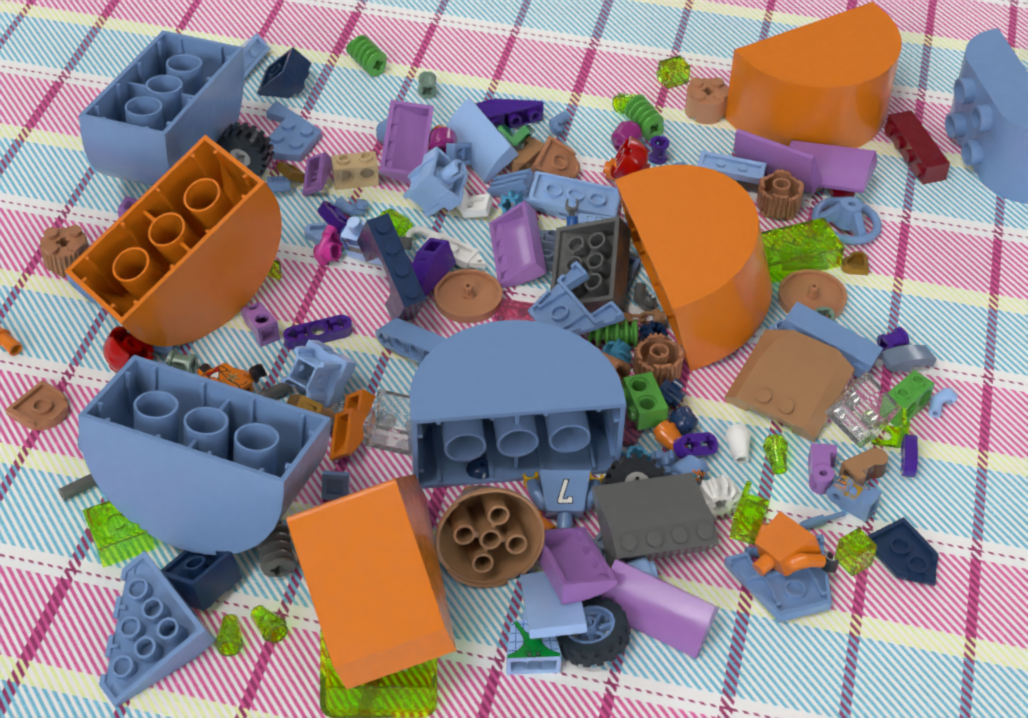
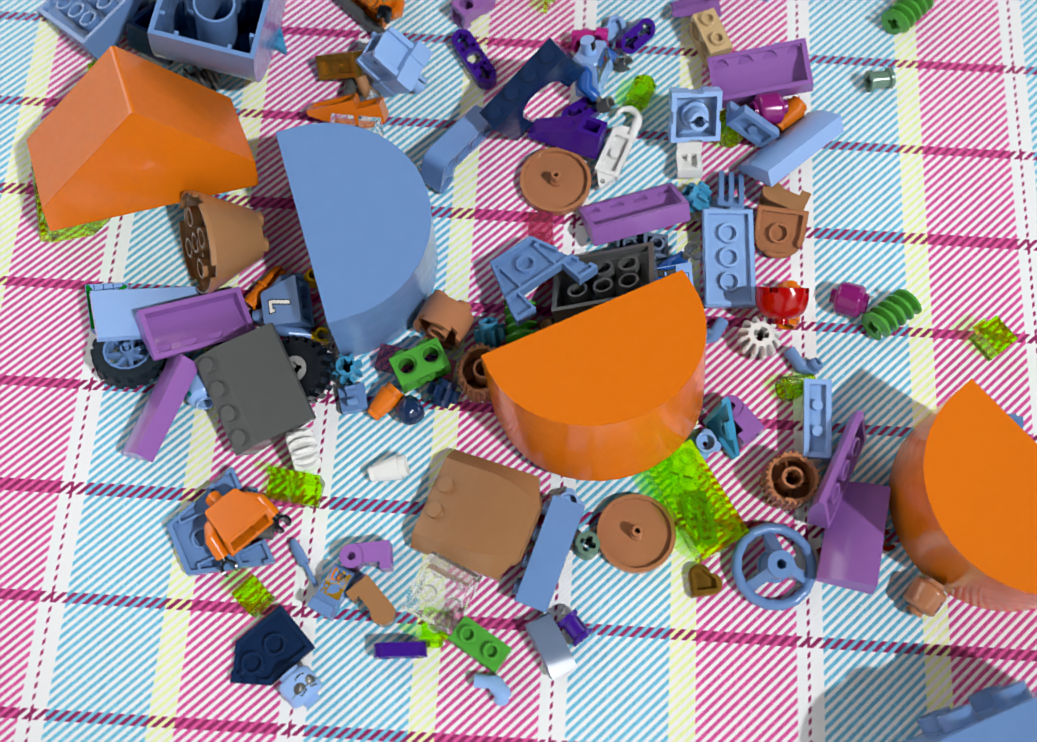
camera: 80 degrees right, 25 degrees up
(335, 484) = (277, 113): medium blue tile -> none
(352, 209) = (656, 49): medium blue arm -> none
(512, 111) = (850, 163): dark purple slope -> none
(518, 138) = (806, 176): green panel -> none
(556, 122) = (856, 223): medium blue arm -> none
(620, 101) = (920, 291): clear neon green cone -> none
(659, 150) = (837, 337): dark purple bush -> none
(693, 465) = (335, 422): medium blue head -> none
(695, 441) = (373, 424): dark purple beam -> none
(706, 100) = (943, 377): nougat brick -> none
(776, 452) = (382, 508): clear neon green cone -> none
(877, 141) = (924, 596): none -> nougat head
(917, 147) = (938, 649): dark red brick -> none
(941, 526) = (300, 687): none -> light blue head

